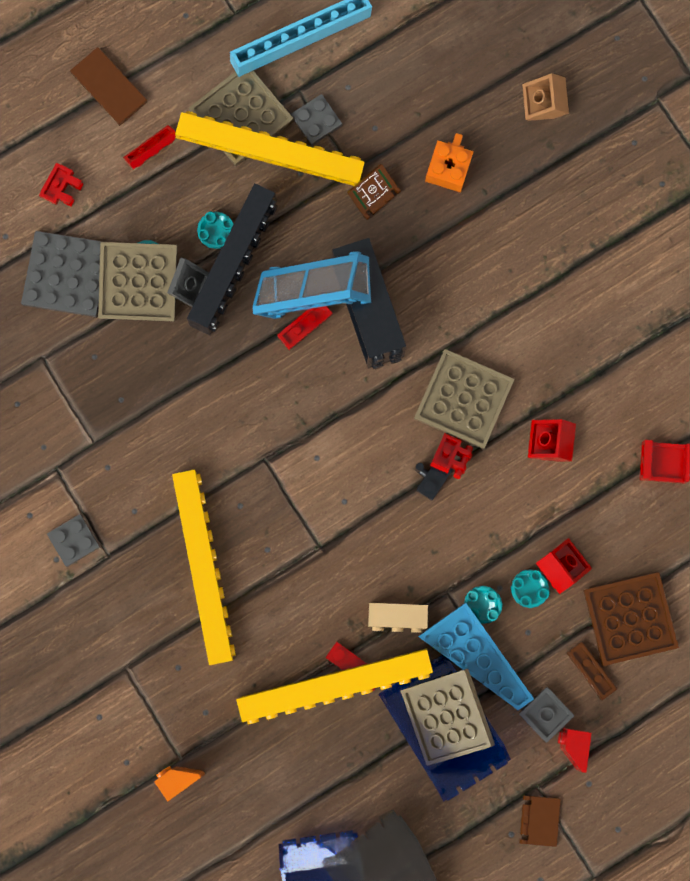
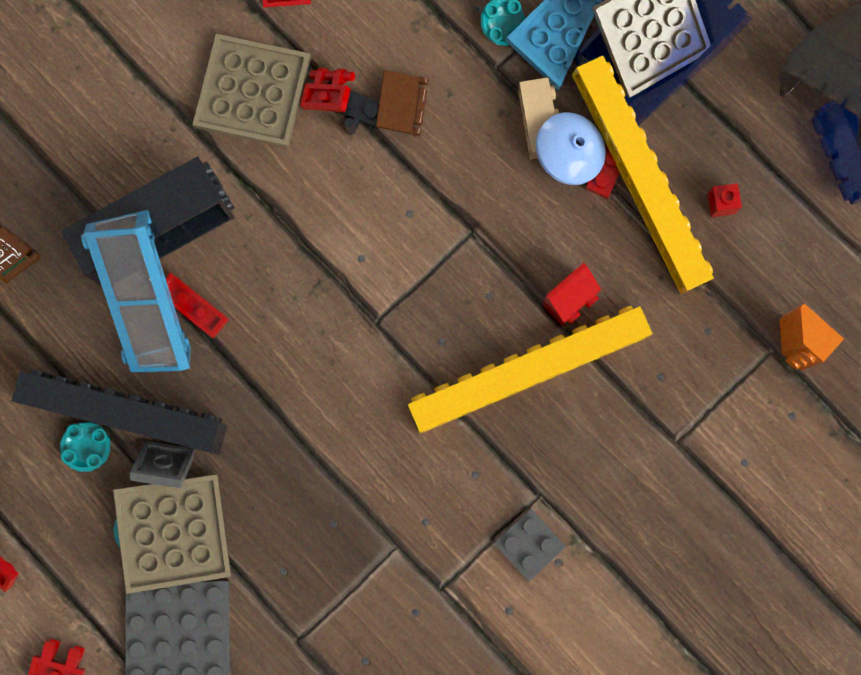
camera: 95 degrees left, 0 degrees up
(251, 610) = (572, 295): none -> red slope
(302, 746) = (724, 200): none -> red brick
(370, 622) = (560, 153): none -> light blue dish
(432, 511) = (401, 102): none -> reddish brown piece

